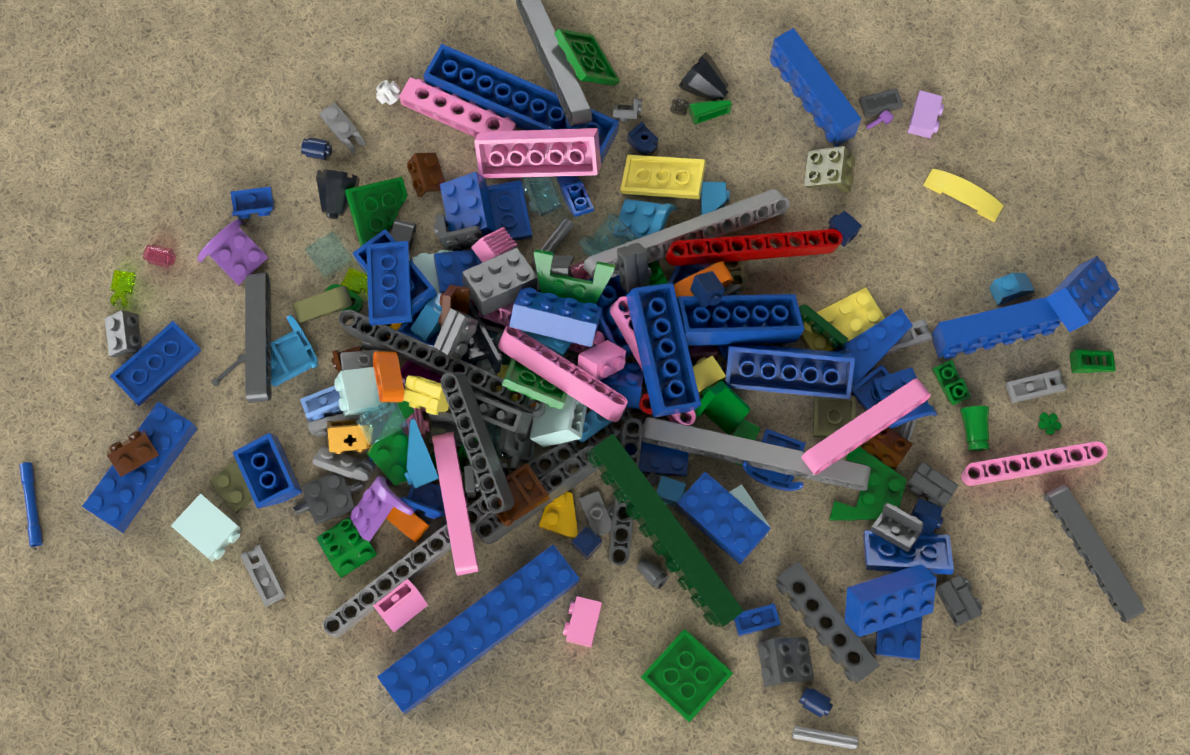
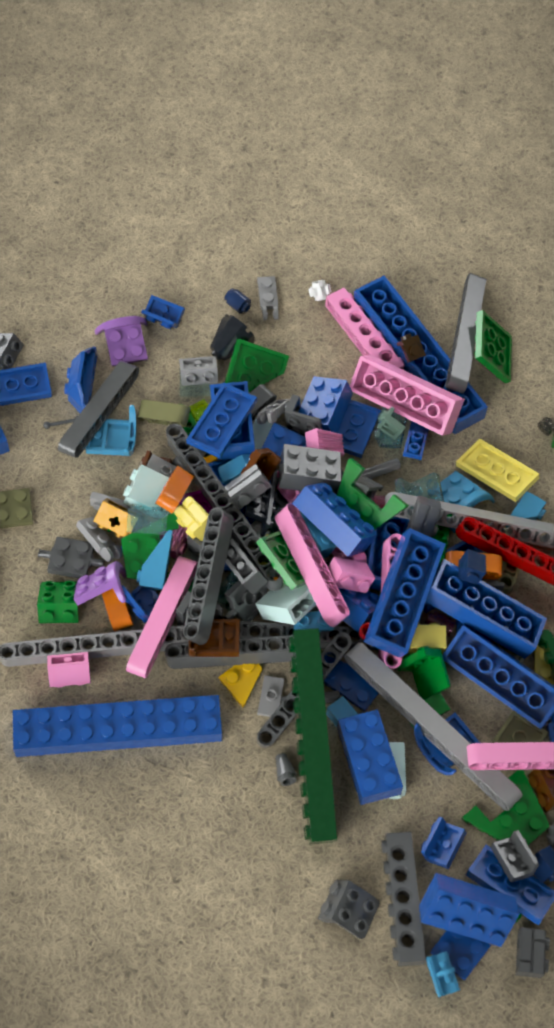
camera: 30 degrees right, 10 degrees down
(122, 284) = (26, 317): clear neon green plate -> none
(159, 255) = (68, 312): clear pink brick -> none
(219, 317) = (81, 378): none -> blue wedge
(267, 471) = (38, 509): blue slope -> none
(321, 404) = (112, 485): light blue bracket -> none
(326, 241) = (198, 370): none -> light grey bracket
(425, 173) = (309, 363): reddish brown bracket -> none
(425, 241) = (272, 411): none -> light grey hinge
(514, 103) = (411, 347): none -> dark brown bracket
(541, 192) = (390, 425): none -> sand green bracket
(583, 621) = (203, 771): bright pink brick -> none
(586, 543) = (247, 712): dark blue brick -> none
(626, 112) = (498, 405): dark grey bracket -> none
(642, 146) = (499, 434): dark blue brick -> none
(686, 675) = (258, 867): green plate -> none
(756, 620) = (346, 859): blue plate -> none
(816, 702) = (352, 957): dark blue brick -> none
(825, 737) = (341, 993): light grey axle -> none
(828, 552) = (443, 843): none -> blue bracket
(899, 667) = (442, 974): none -> dark azure hips

